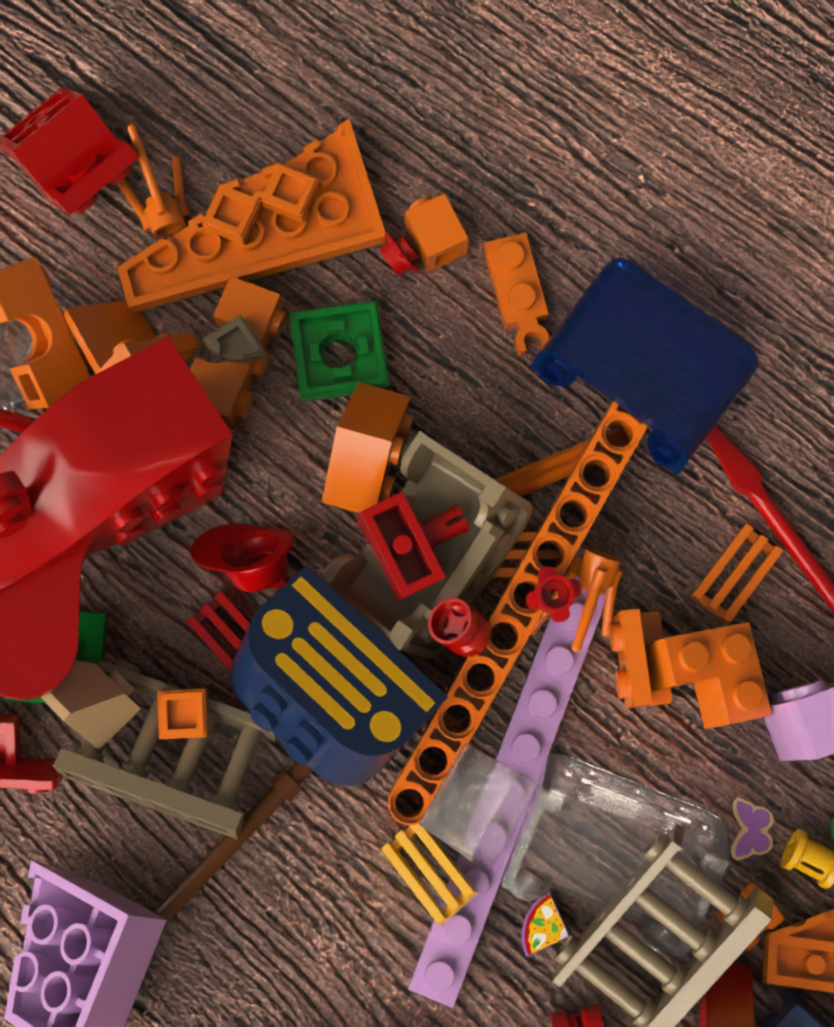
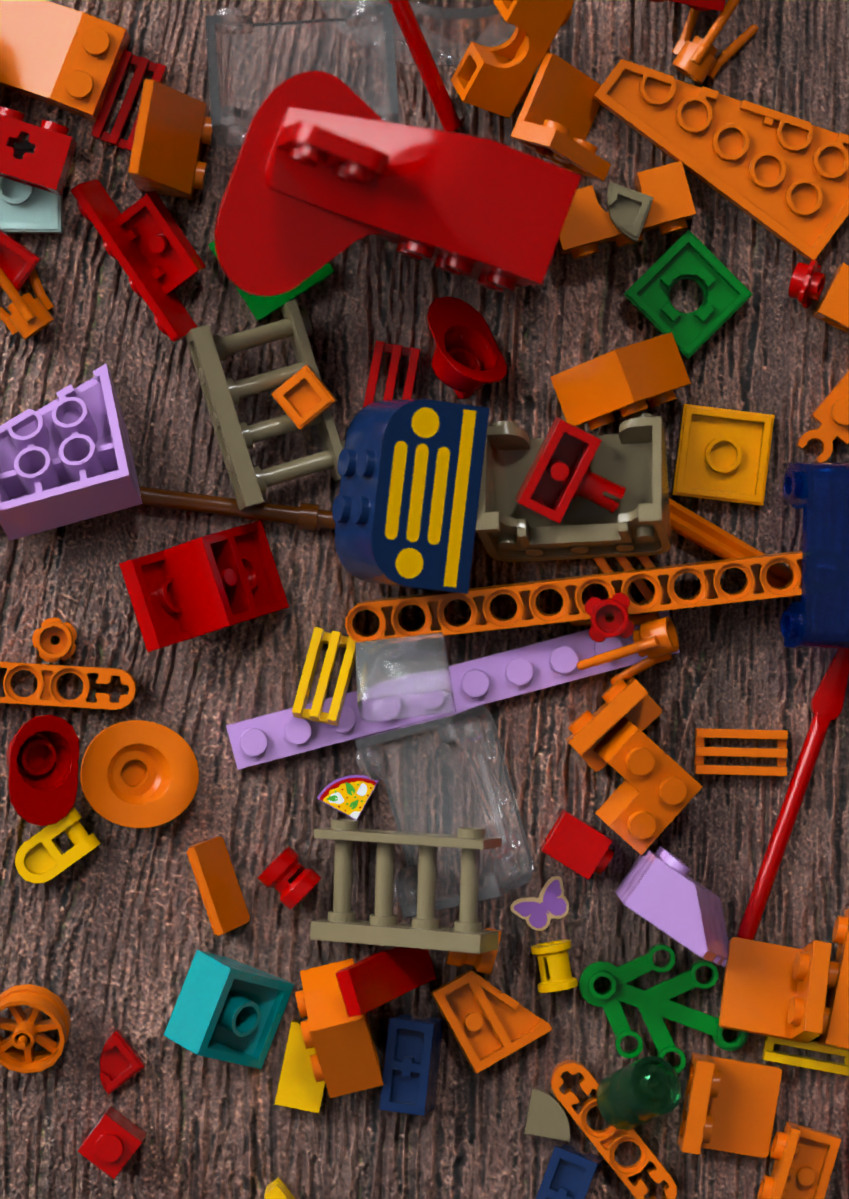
camera: 50 degrees right, 10 degrees up
(93, 702) = (261, 325): tan slope -> none
(240, 202) = (784, 136): orange tile -> none
(274, 920) = (204, 585): none -> red bracket
(448, 627) = (521, 556): red wheel -> none
(485, 415) = (723, 454): none -> light orange tile
(723, 763) = (578, 845): none -> red brick

